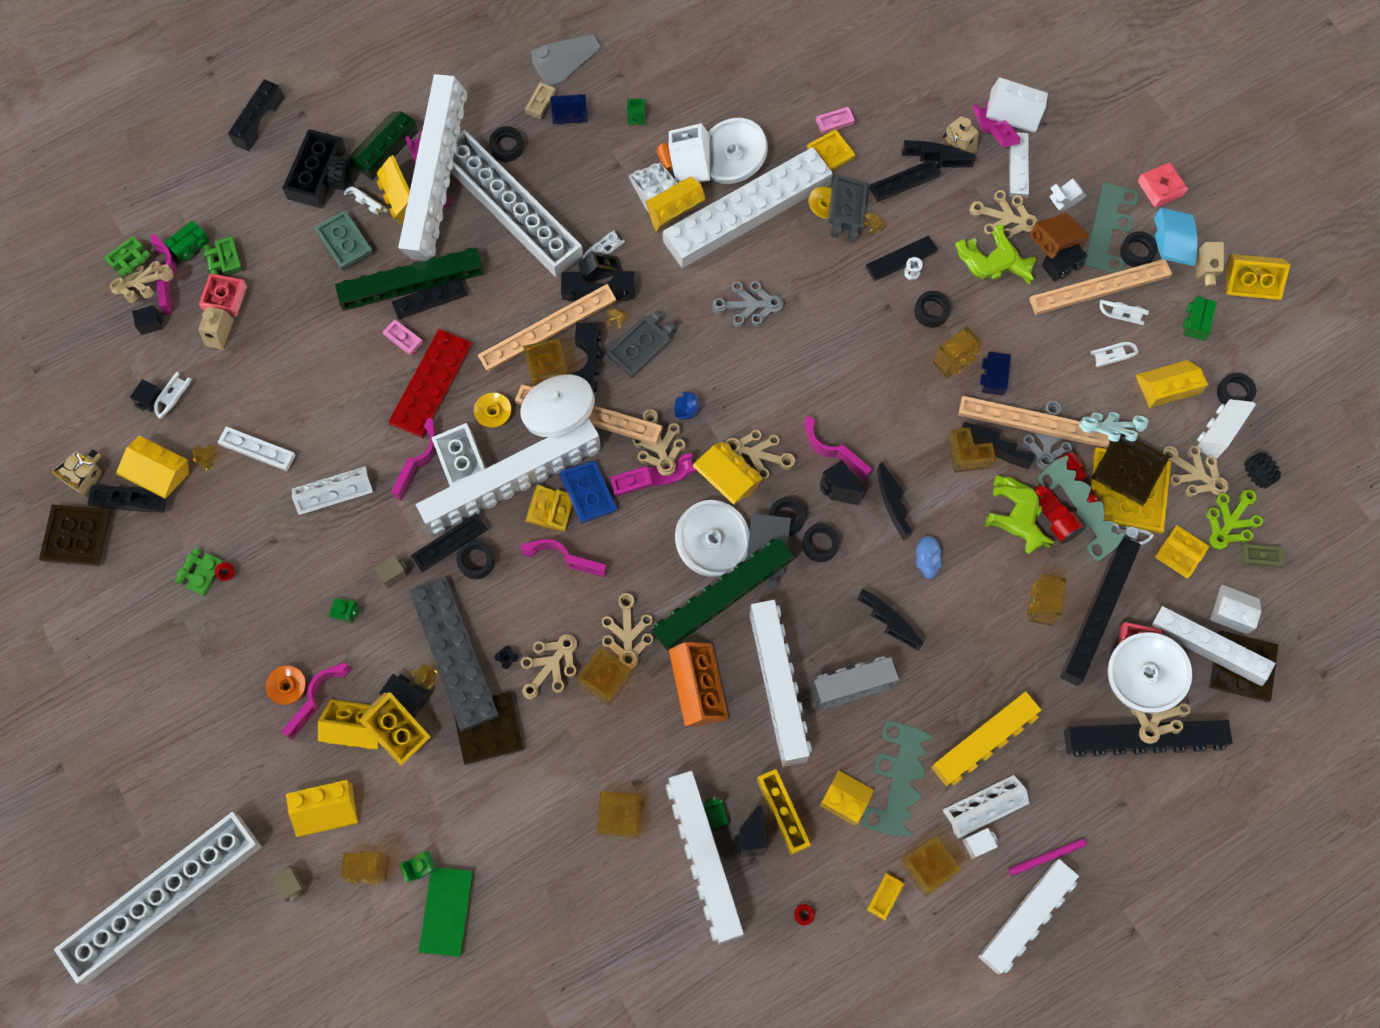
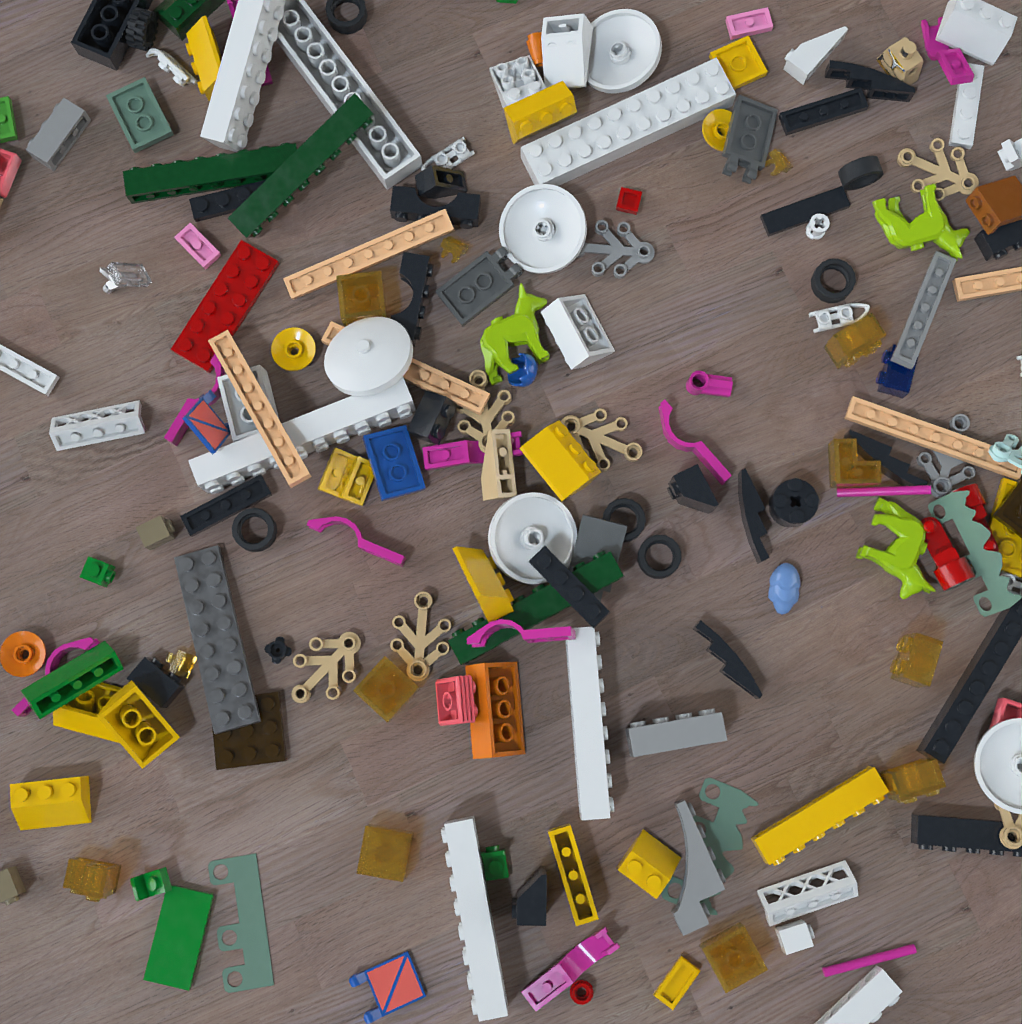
camera: 10 degrees right, 10 degrees up
(276, 261) = (58, 134): none -> light grey brick
(332, 698) = (72, 679): none -> green brick
(343, 366) = (124, 275): none -> clear piece
(428, 473) = (206, 423): none -> flag
(472, 456) = (259, 409): none -> light nougat plate
(484, 263) = (301, 166): none -> dark green brick
(509, 896) = (251, 928): none -> sand green piece
(615, 451) = (432, 417): none -> black brick
(638, 929) = (392, 984): none -> coral flag
(664, 678) = (456, 700): none -> coral brick
(675, 376) = (513, 331): none -> lime animal
(676, 484) = (498, 467): none -> tan slope
(676, 577) = (485, 582): none -> yellow slope
(689, 292) = (543, 228): none -> white dish
(723, 612) = (481, 636): none -> dark pink piece
(727, 370) = (577, 331): none -> white slope
(749, 570) = (569, 587): none -> black plate
(756, 265) = (629, 200): none -> red plate
(791, 895) = (569, 968): none -> dark pink piece
(844, 400) = (711, 384): none -> dark pink piece
(888, 138) = (811, 54): none -> white slope
(893, 799) = (700, 874): none -> light grey arch
(926, 476) = (781, 498): none -> black brick
(941, 223) = (860, 173): none -> black tyre
(945, 334) = (844, 314): none -> white piece
(999, 468) = (884, 491): none -> dark pink bar
(1008, 322) = (923, 310): none -> light grey plate
(1060, 697) = (913, 780): none -> clear yellow brick

